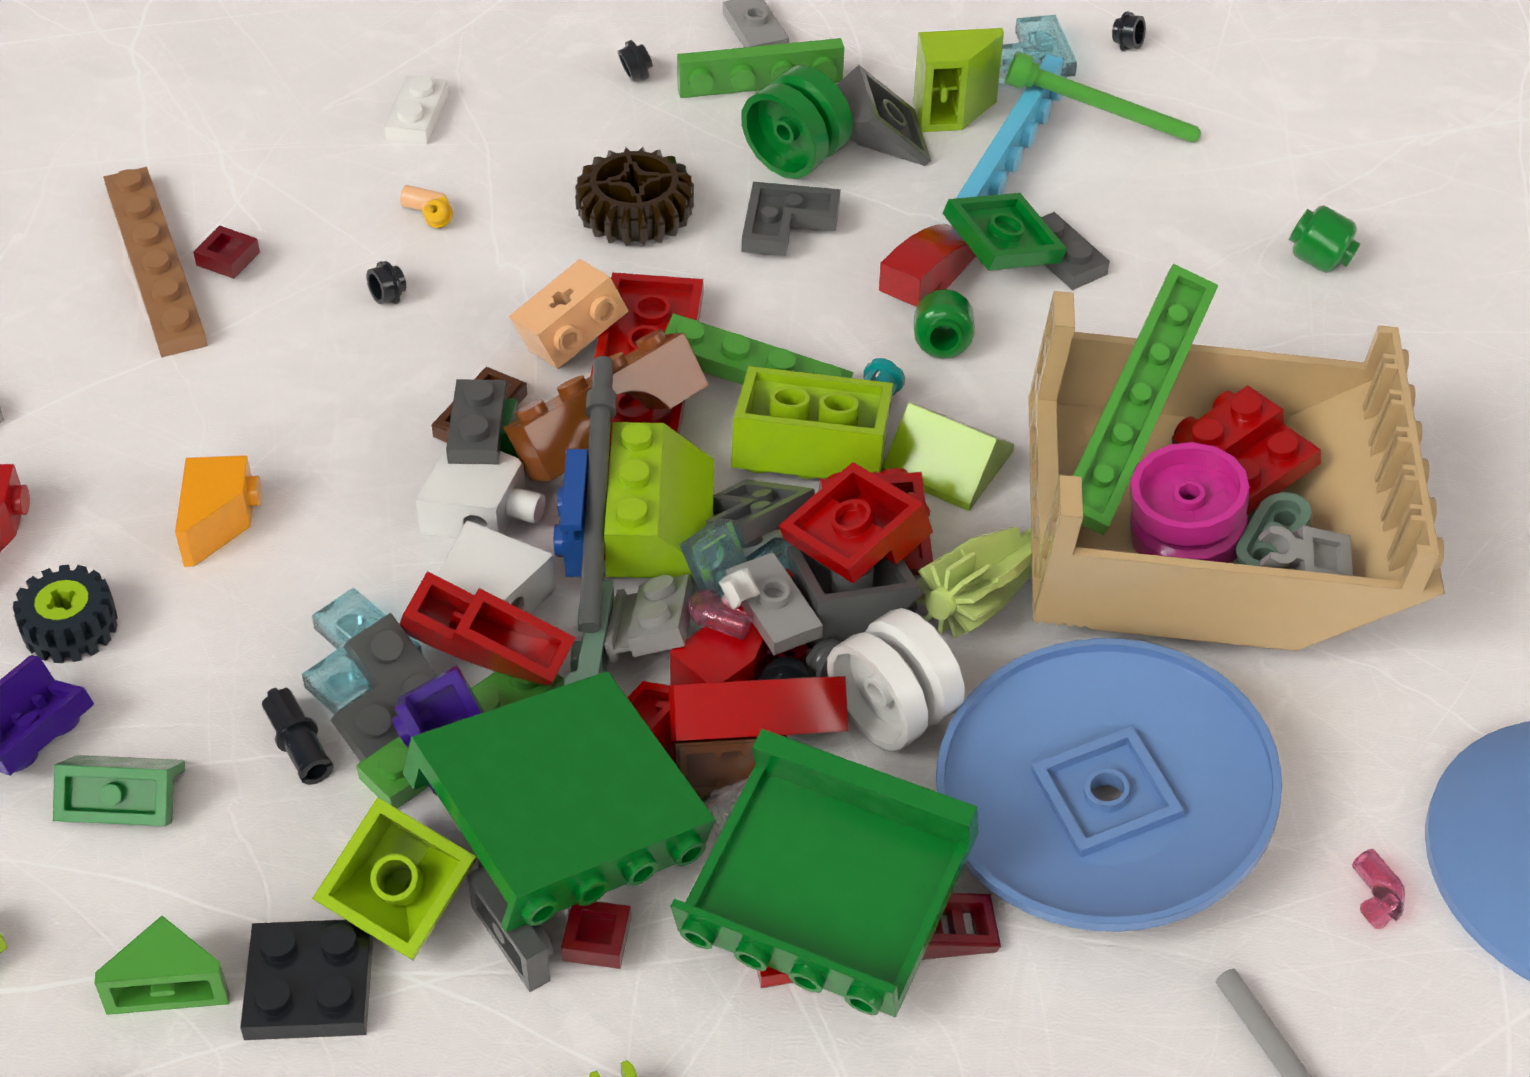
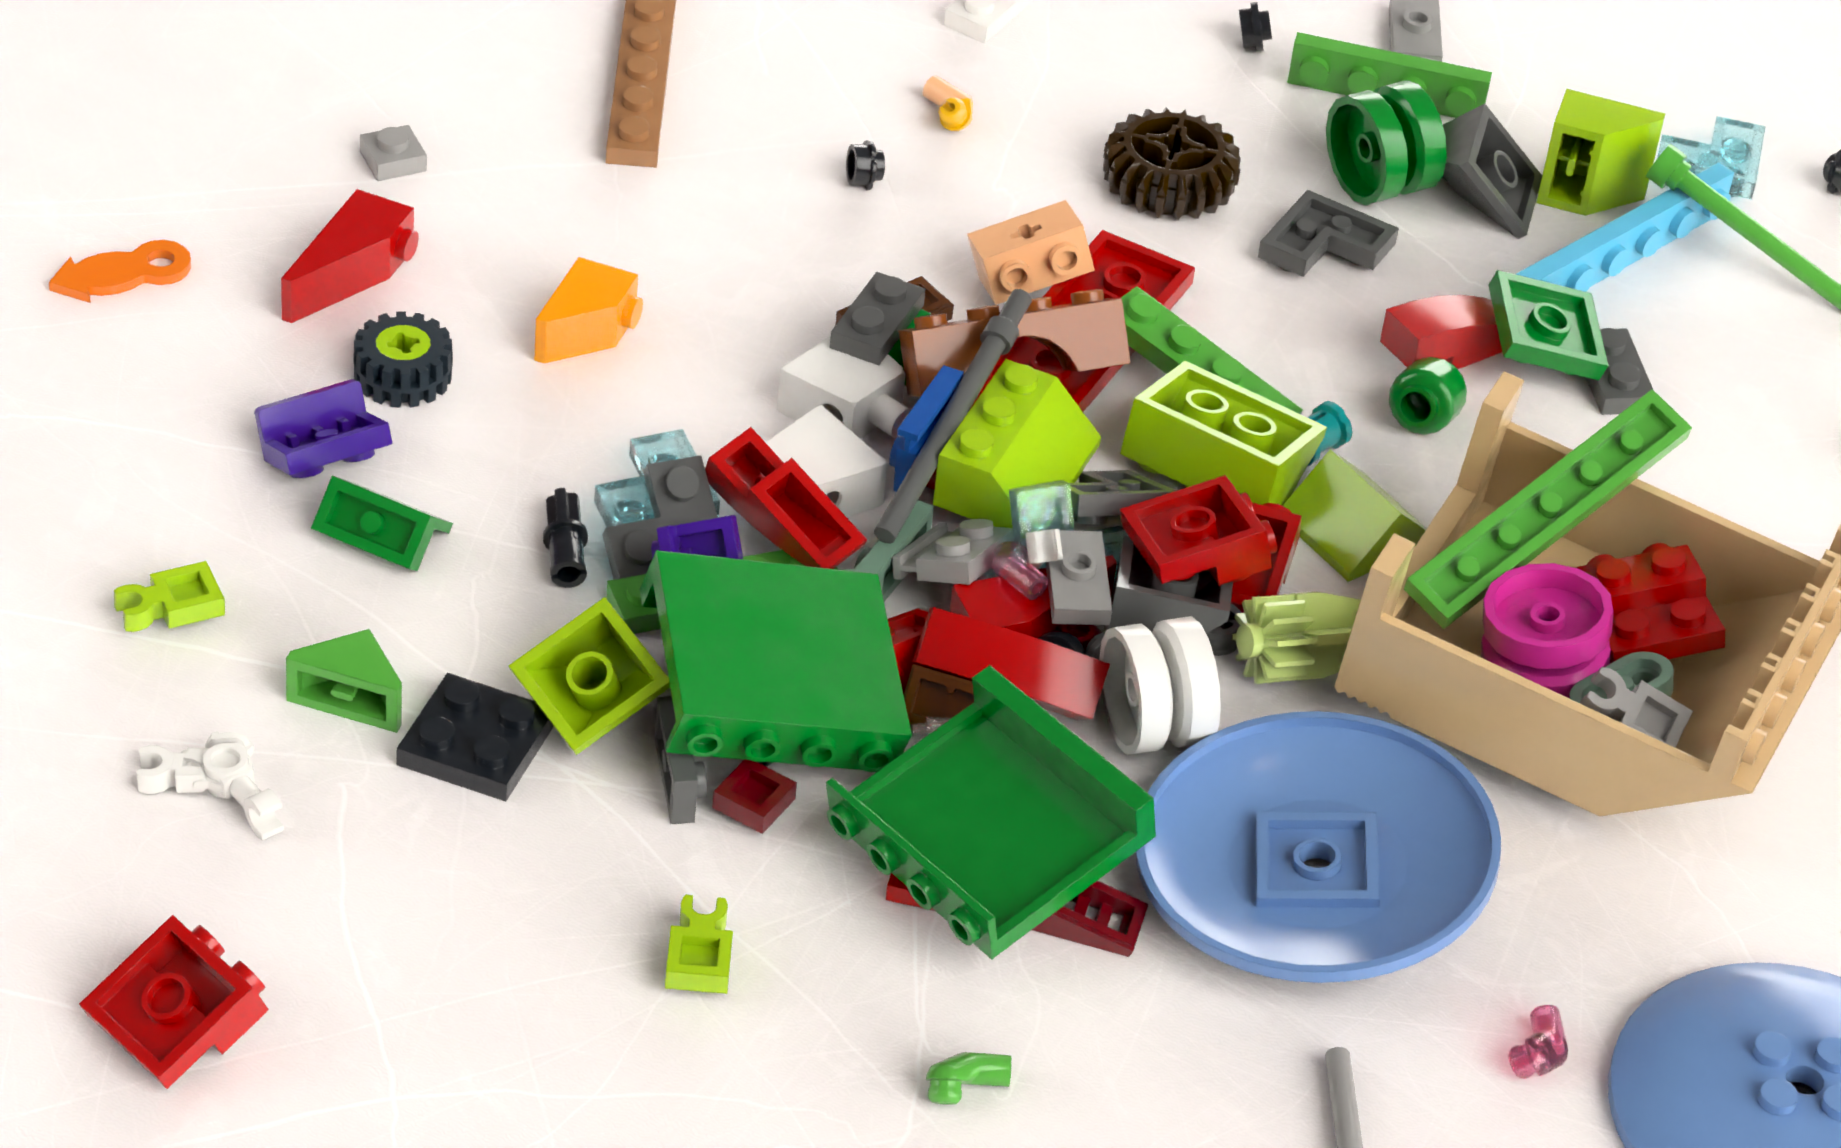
camera: 20 degrees right, 5 degrees down
(226, 251) = (718, 82): dark red plate -> none

